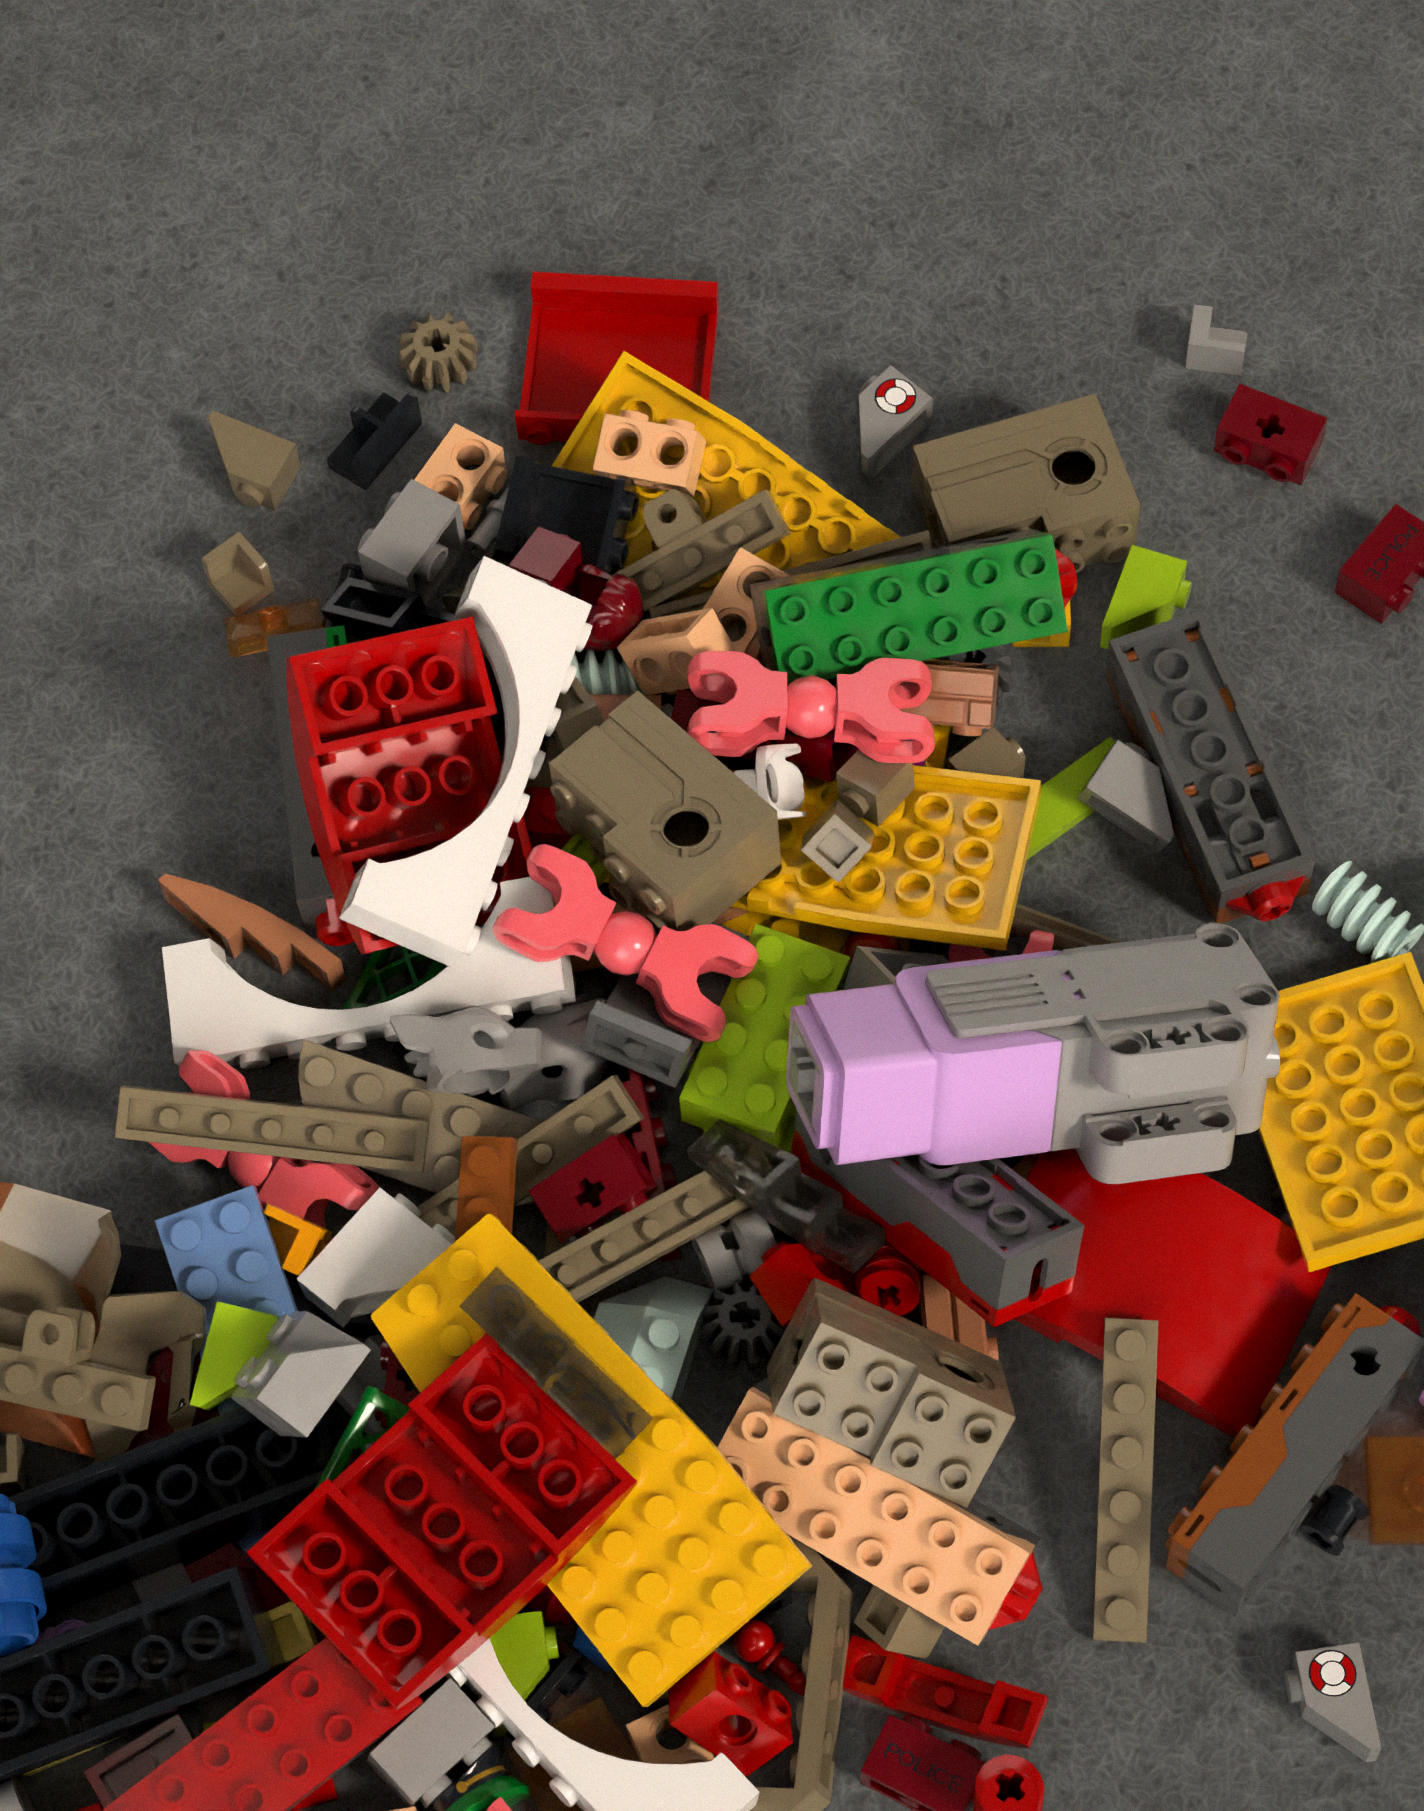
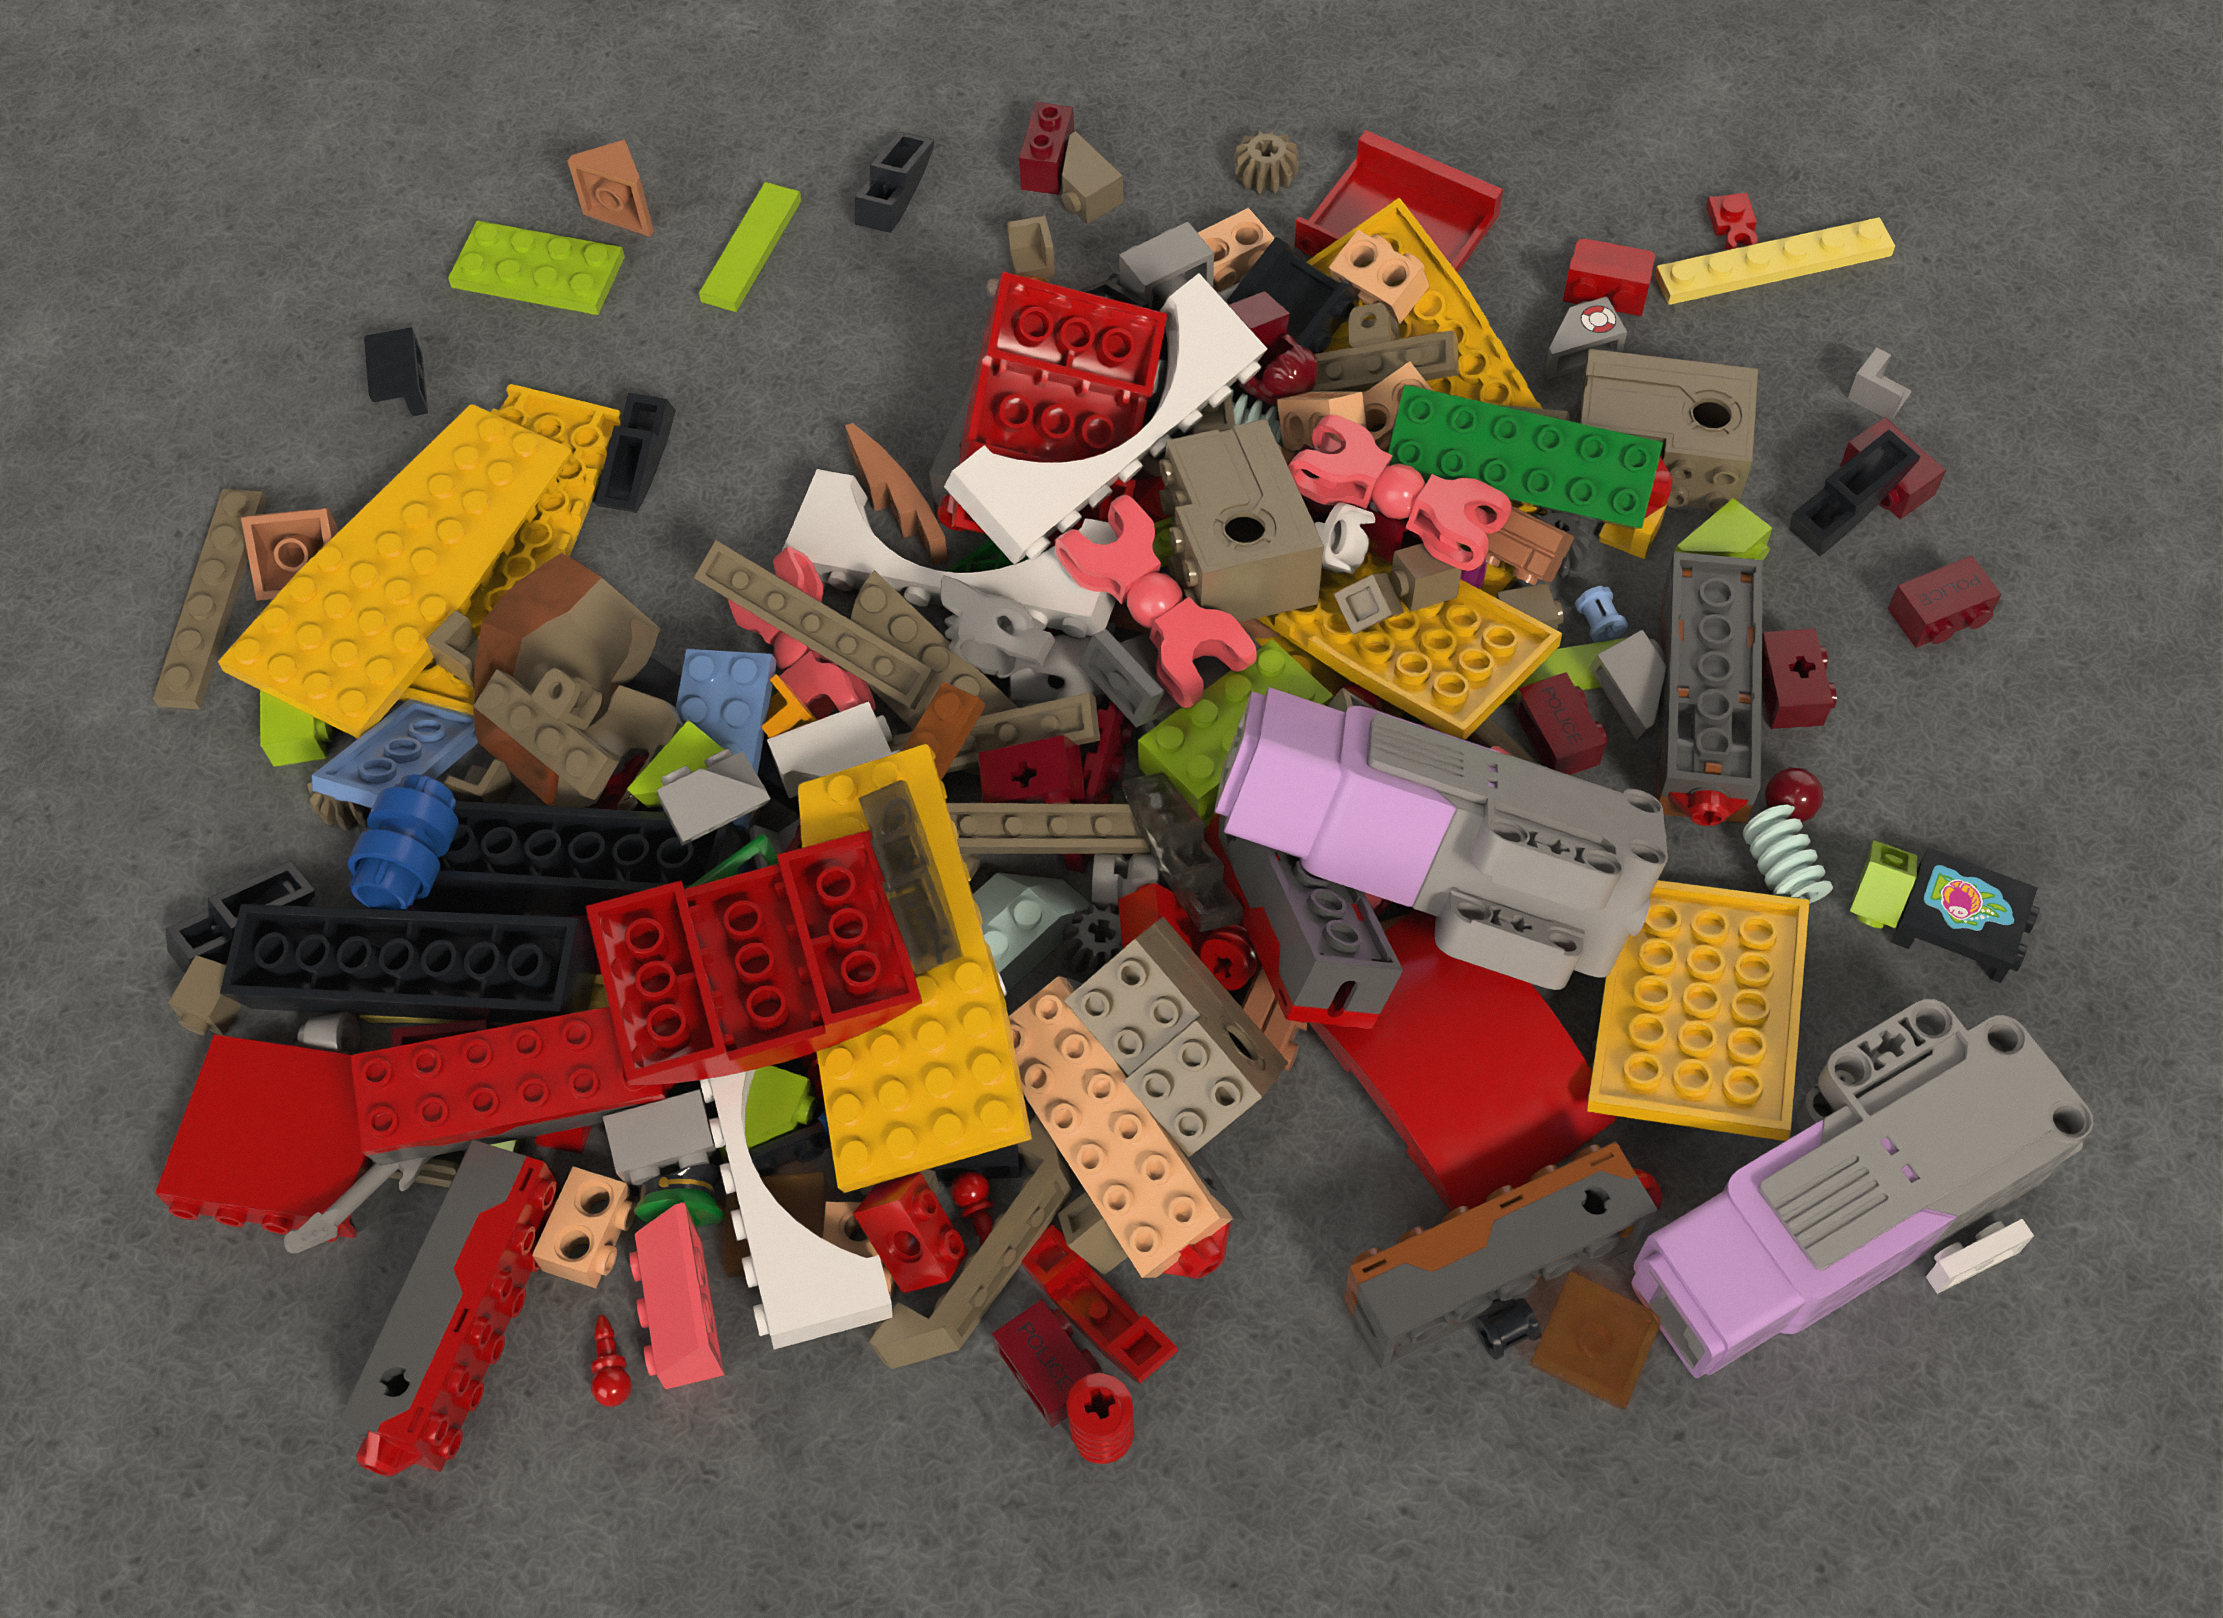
camera: 25 degrees right, 5 degrees down
(32, 555) = (892, 182): none -> black slope
(186, 441) = (1045, 148): none -> dark red brick
(375, 438) = (1188, 201): black panel -> none
(876, 331) = (1610, 271): none -> red bracket
(971, 203) = (1733, 217): none -> red plate
(1035, 238) = (1774, 260): none -> light yellow plate
(1059, 732) = (1601, 614): none -> light blue bush
(1080, 875) = (1560, 725): none -> dark red brick
(1125, 1480) = (1340, 1205): dark tan plate -> none
(1247, 483) = (1853, 492): none -> black slope
(1287, 740) = (1796, 679): none -> dark red brick
(1336, 1696) = (1430, 1475): light grey slope -> none
(1342, 840) = (1798, 789): none -> dark red piece

